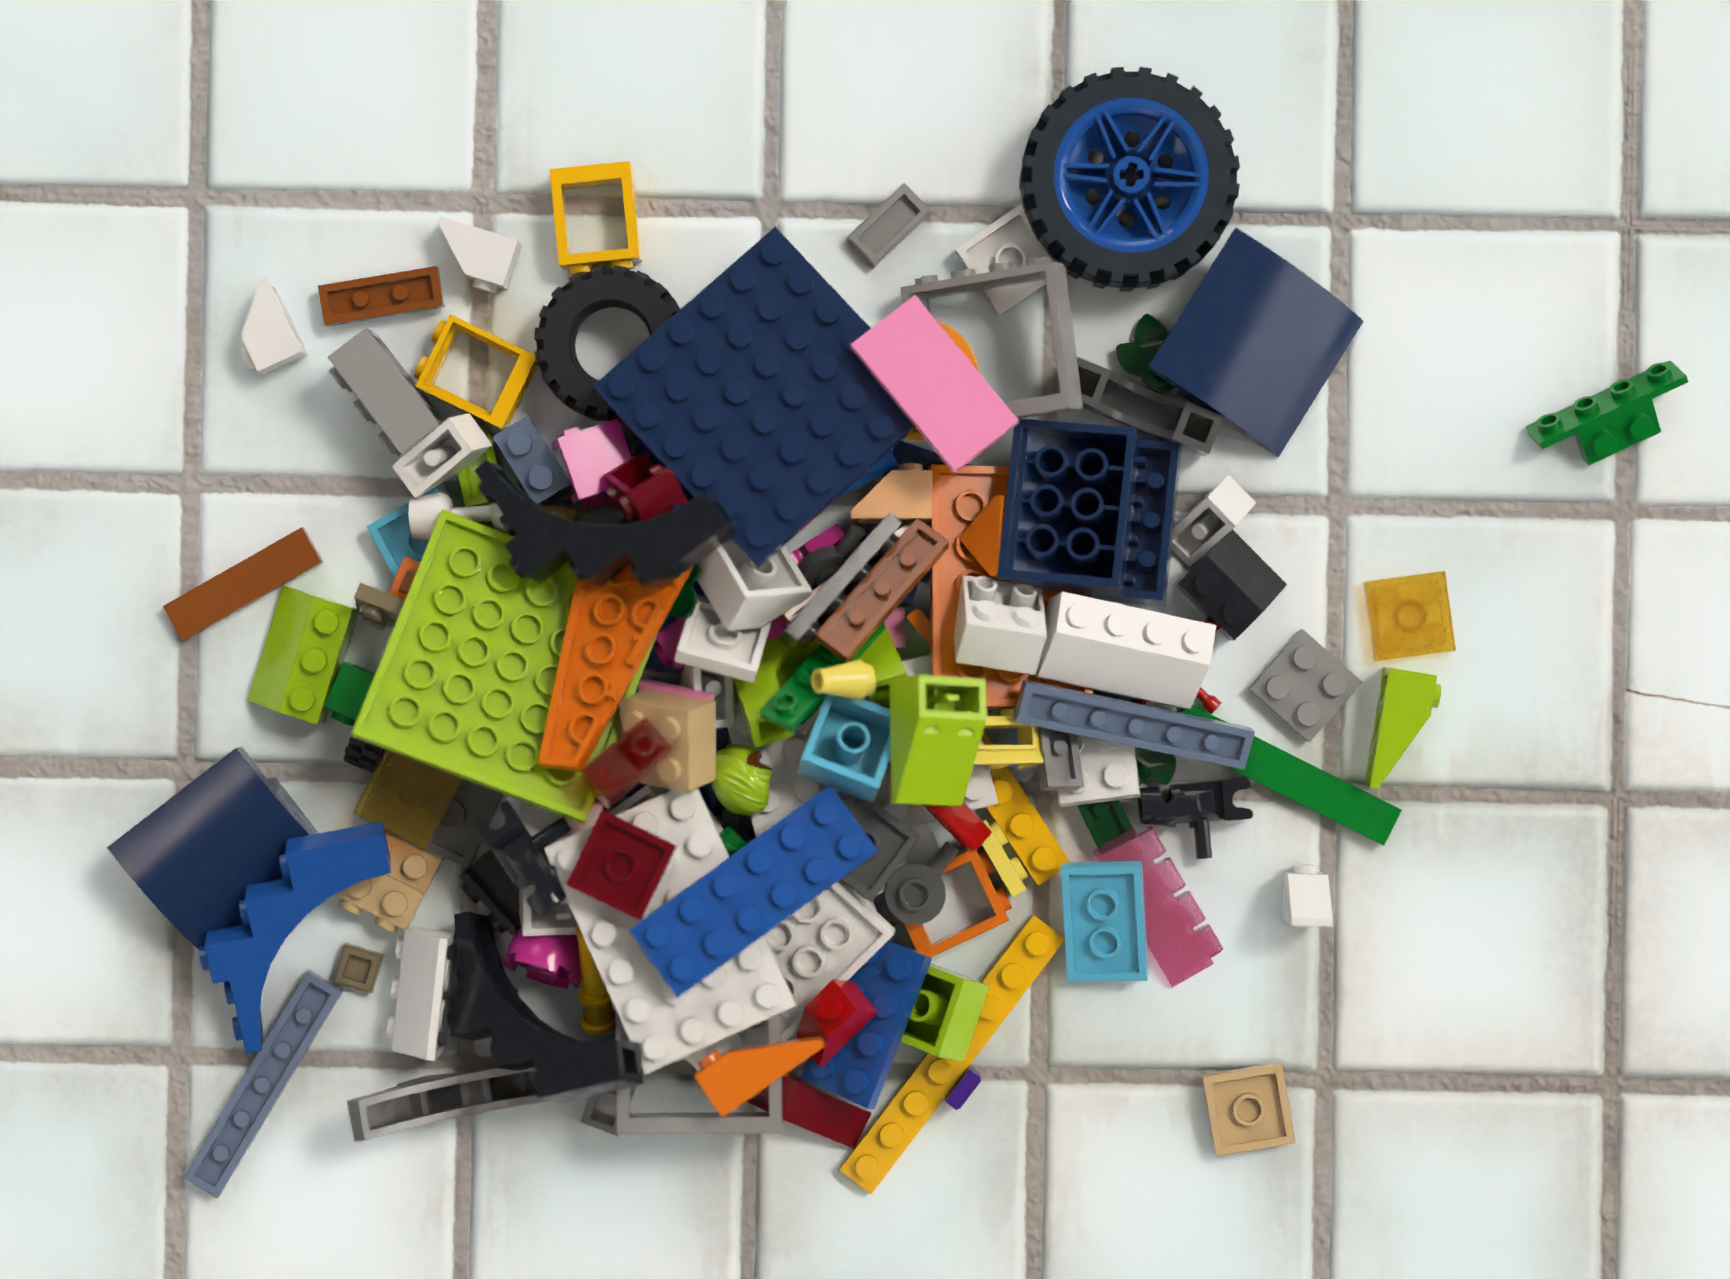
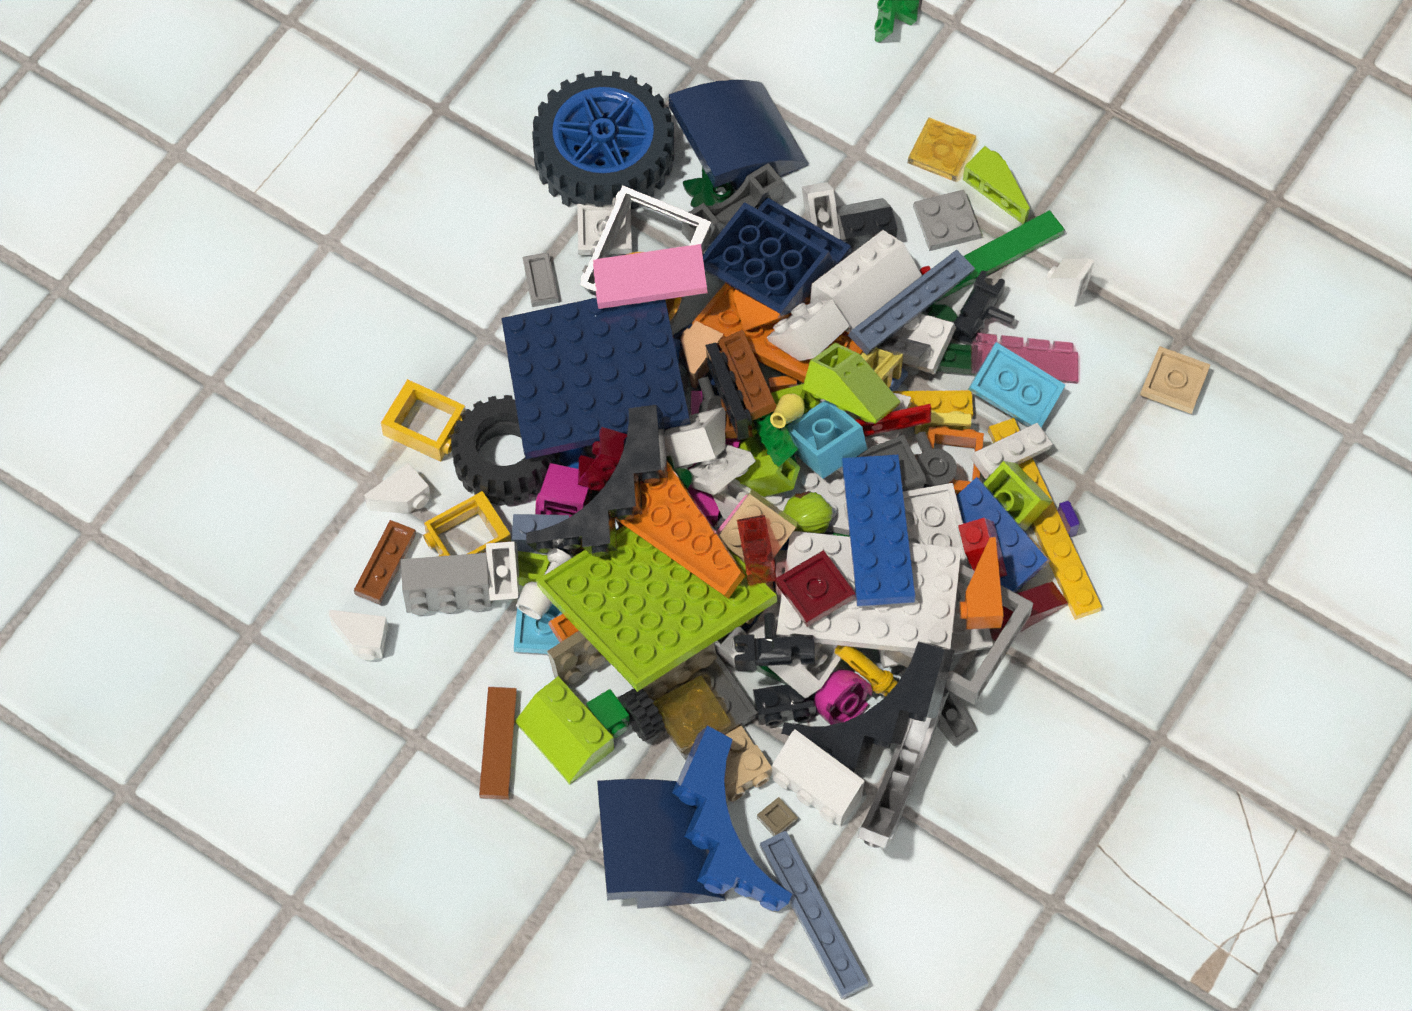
camera: 60 degrees left, 25 degrees down
(1006, 969) = (1014, 448): none -> white plate

